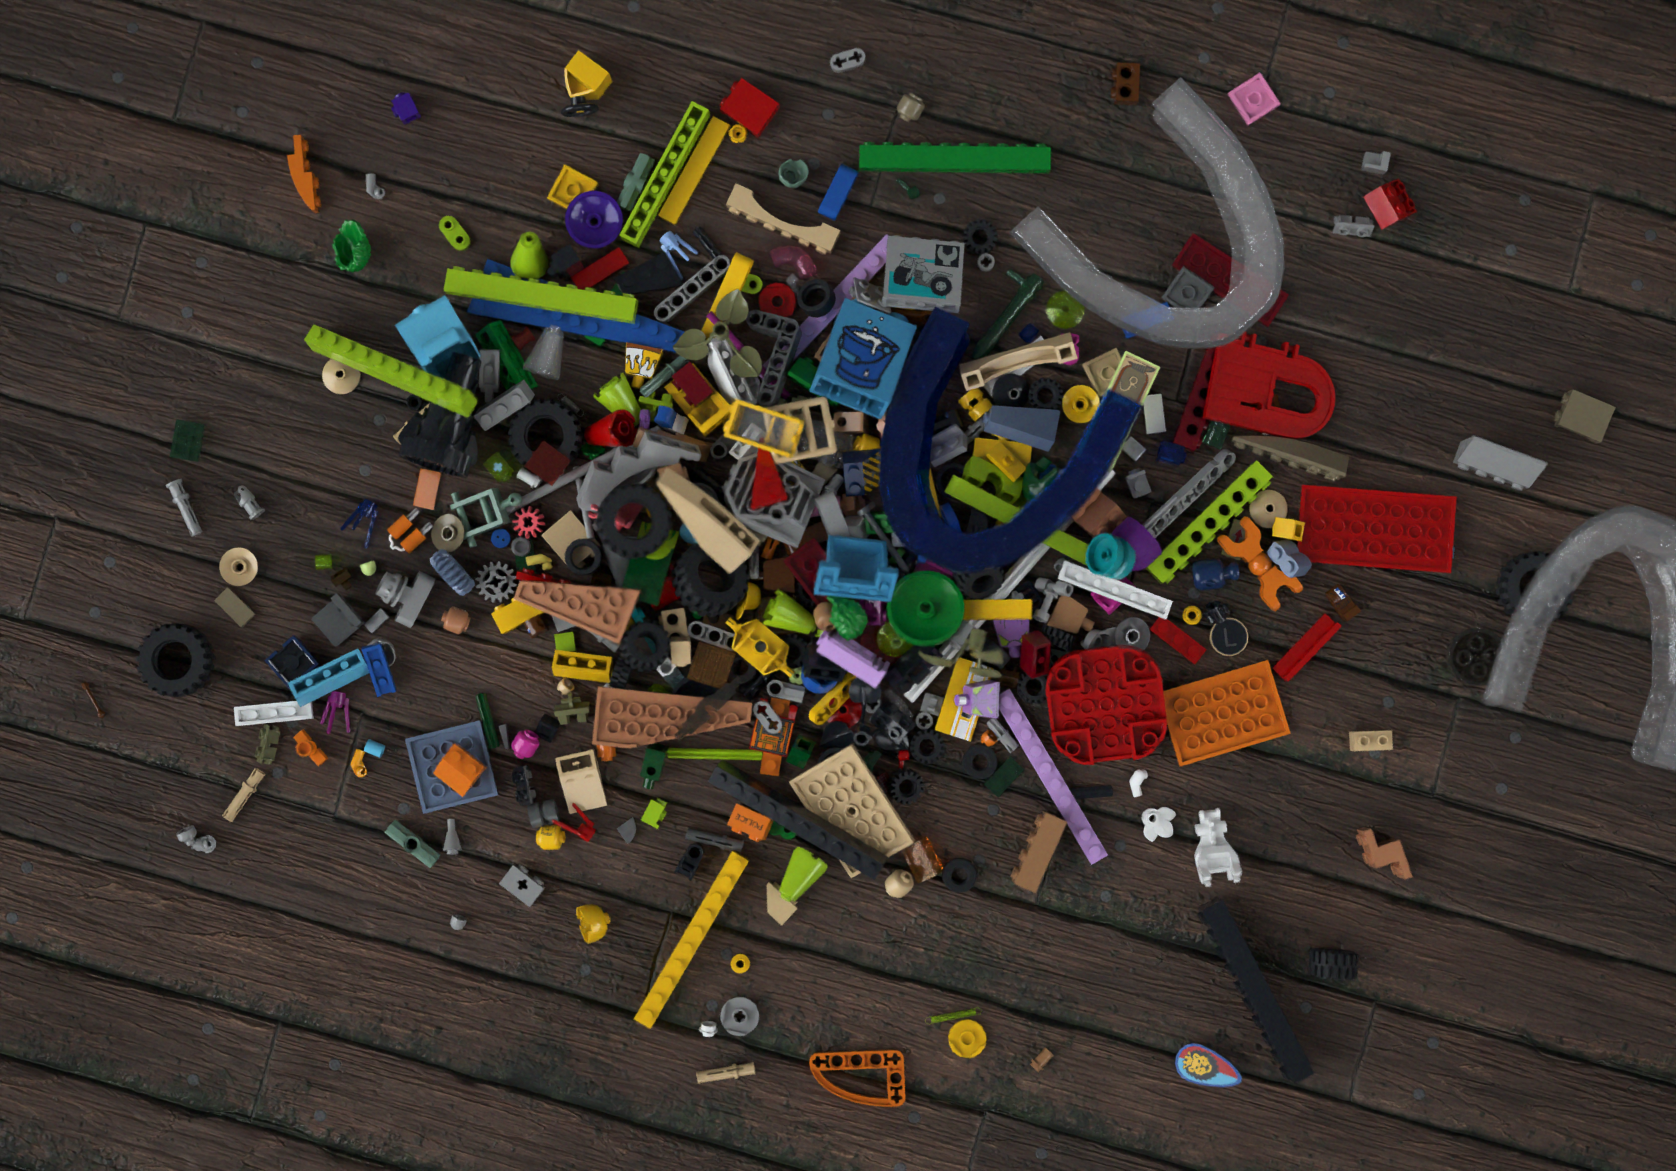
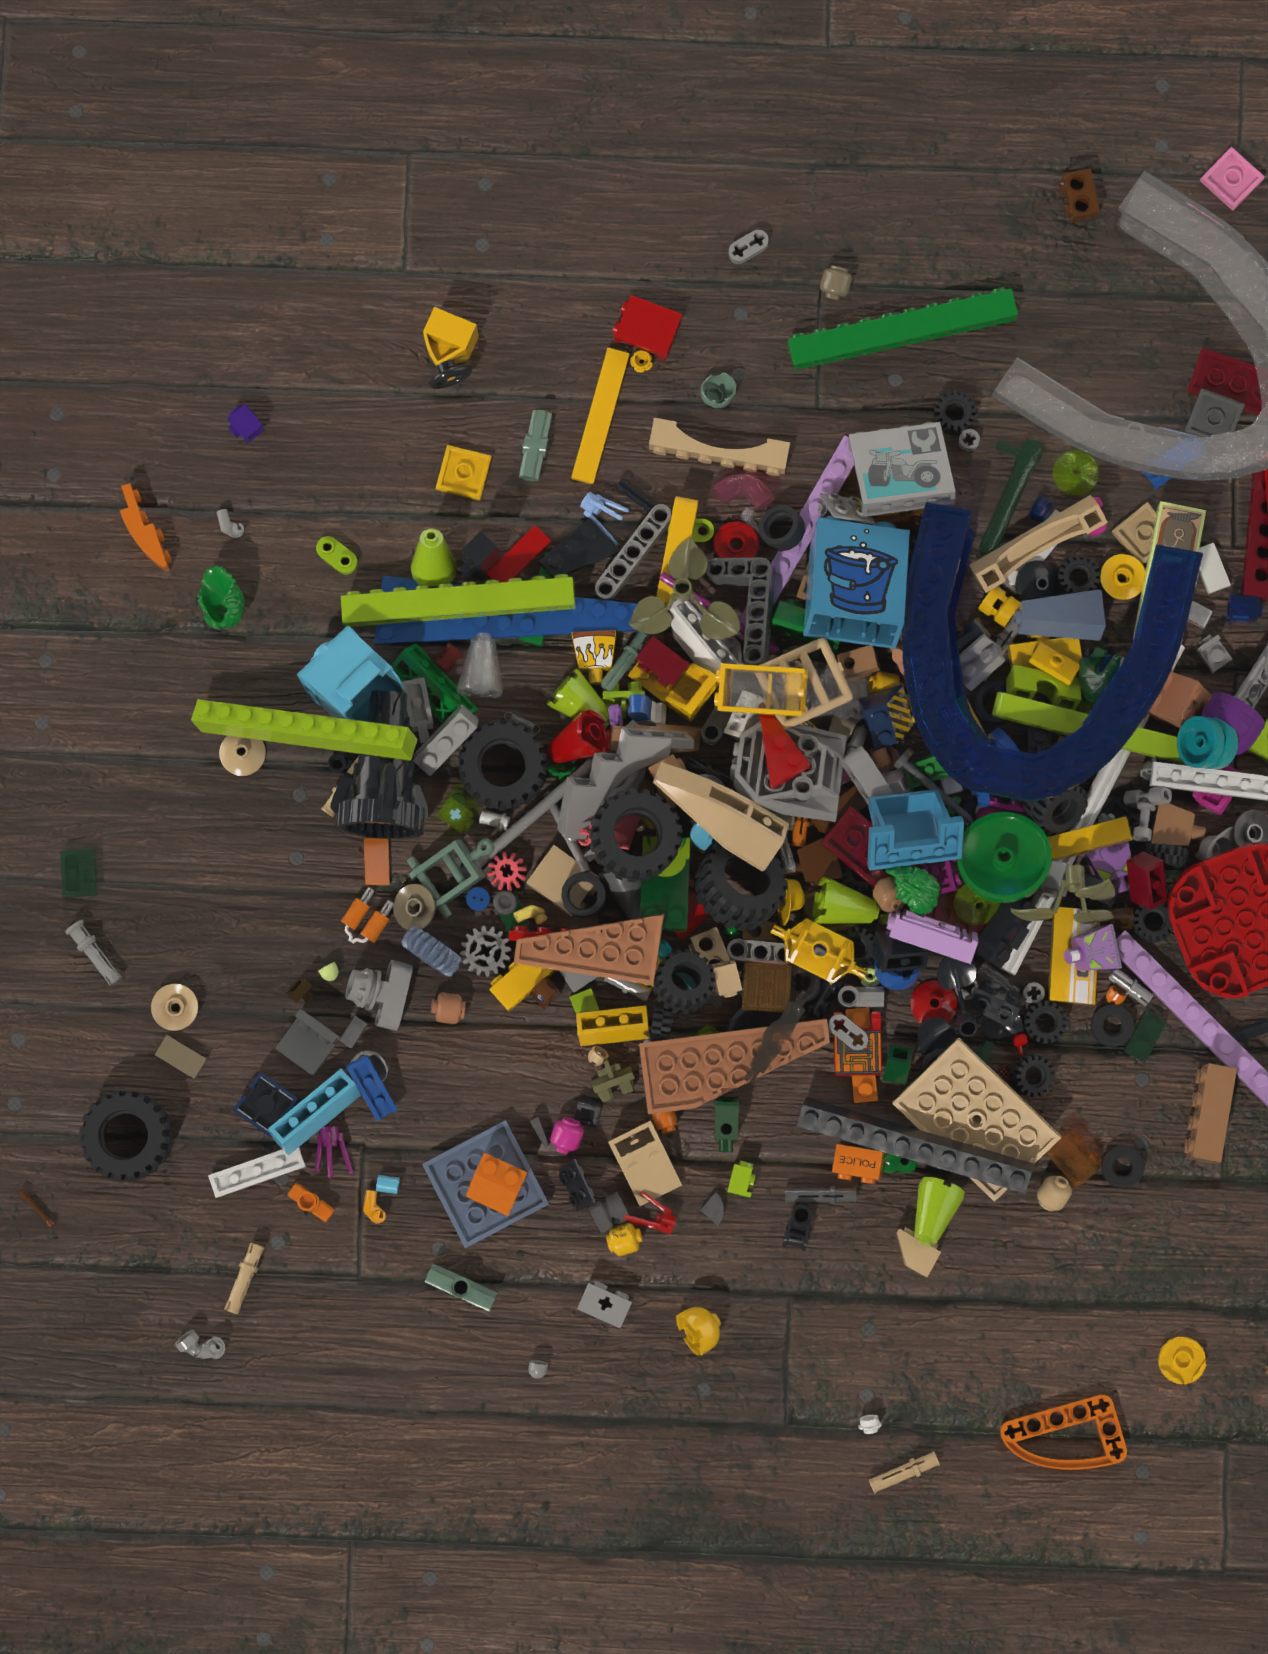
camera: 10 degrees left, 5 degrees down
(248, 501) = (166, 927): light grey piece -> none
(267, 737) = (257, 1219): olive hinge -> none
(323, 561) = (273, 977): clear neon green hose -> none
(365, 509) = (309, 903): clear blue plant -> none
(452, 843) = (507, 1274): light grey cone -> none
(487, 720) = (514, 1118): dark green axle -> none
(547, 463) = (515, 794): clear red piece -> none
(589, 206) = (502, 484): dark purple dish -> none
(665, 174) = (568, 427): lime brick -> none
(670, 672) = (719, 1008): leg -> none
(691, 939) = (823, 1320): yellow brick -> none
(726, 754) = (795, 1092): lime axle -> none
(733, 1006) = (912, 1388): light grey plate -> none
(744, 958) = (880, 1336): yellow plate -> none
(838, 192) = (775, 400): blue beam -> none
(840, 699) = (911, 1009): yellow beam -> none
(912, 192) = (862, 380): clear green hand -> none
(931, 704) = (1037, 971): light grey tile -> none
(947, 1018) = (1157, 1335): lime piece -> none

